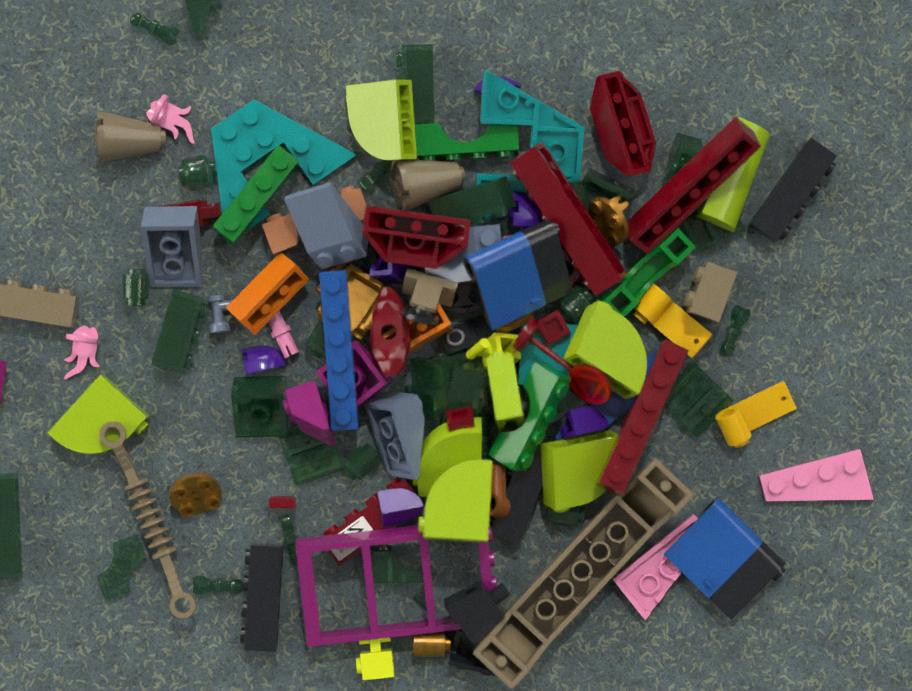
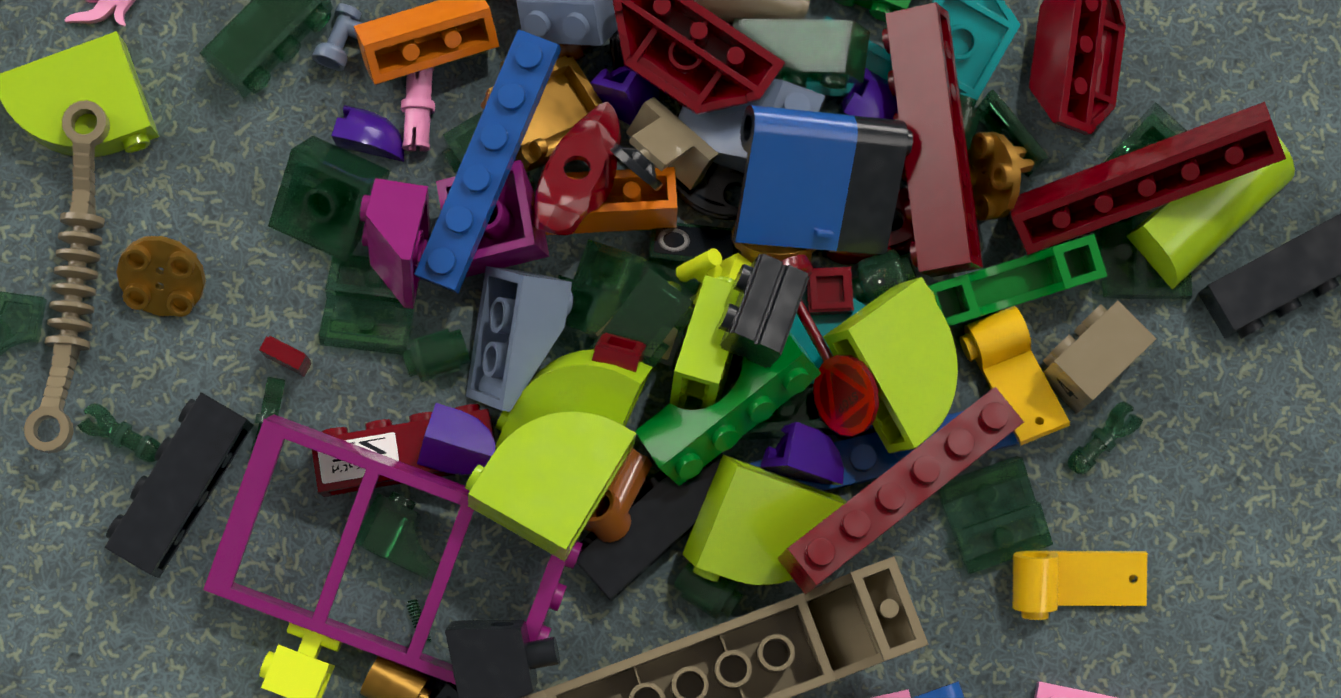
camera: 25 degrees right, 10 degrees down
(486, 428) = (647, 401): clear green piece -> none
(527, 365) = (763, 310): none -> black brick

